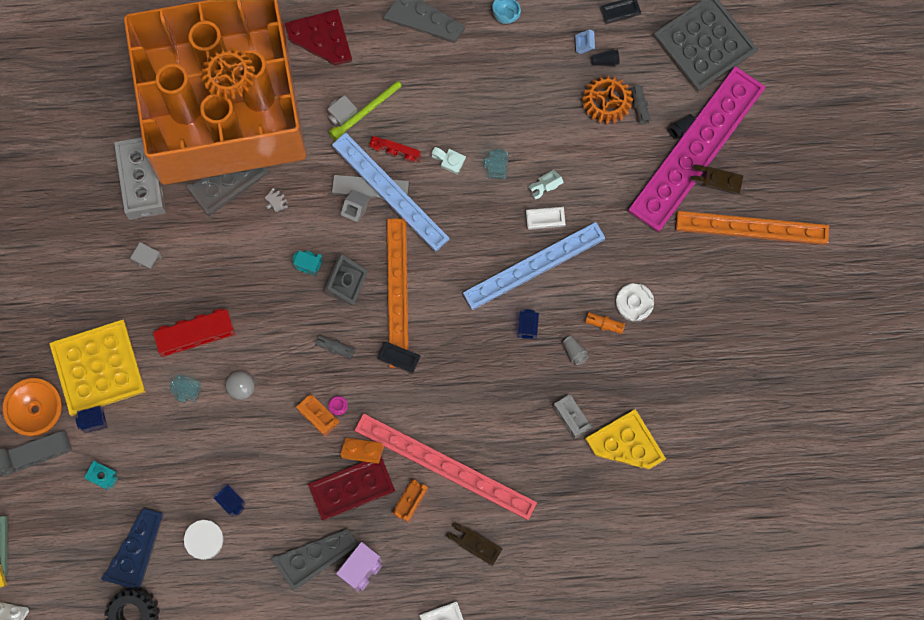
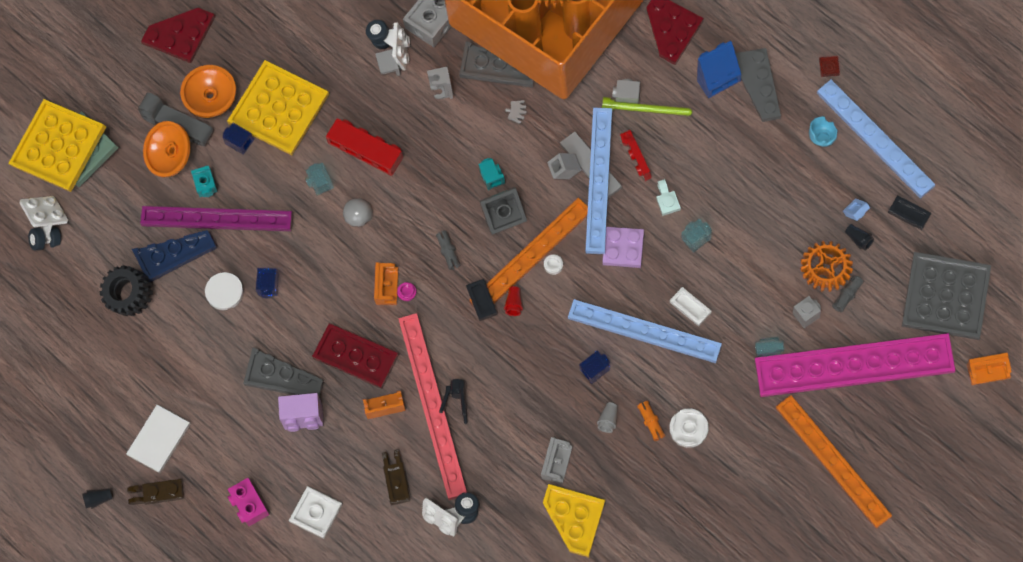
camera: 55 degrees right, 5 degrees down
(41, 487) = (160, 146): none -> orange dish
(120, 241) = (383, 37): none -> white plate
(139, 494) = (216, 218): none -> magenta plate
(202, 229) = (440, 79): none -> light grey hinge
(362, 450) = (388, 337): orange plate -> none
(391, 34) = (718, 69): none -> blue slope
(420, 283) = (553, 264): none -> white tile
(423, 337) = (513, 303): none -> red cone
(452, 437) = (457, 390): none -> black plant
(456, 222) = (623, 247): none -> lavender plate
(546, 182) = (718, 282): light aqua plate -> none
(547, 533) = (448, 520): none -> white plate
(628, 143) = (807, 311): none -> light grey brick
(629, 193) = (769, 347): none -> clear light blue brick
(679, 127) = (858, 337): black cone -> none
(718, 179) = (845, 401): dark brown hinge -> none
(785, 64) = (989, 368): none -> orange hinge

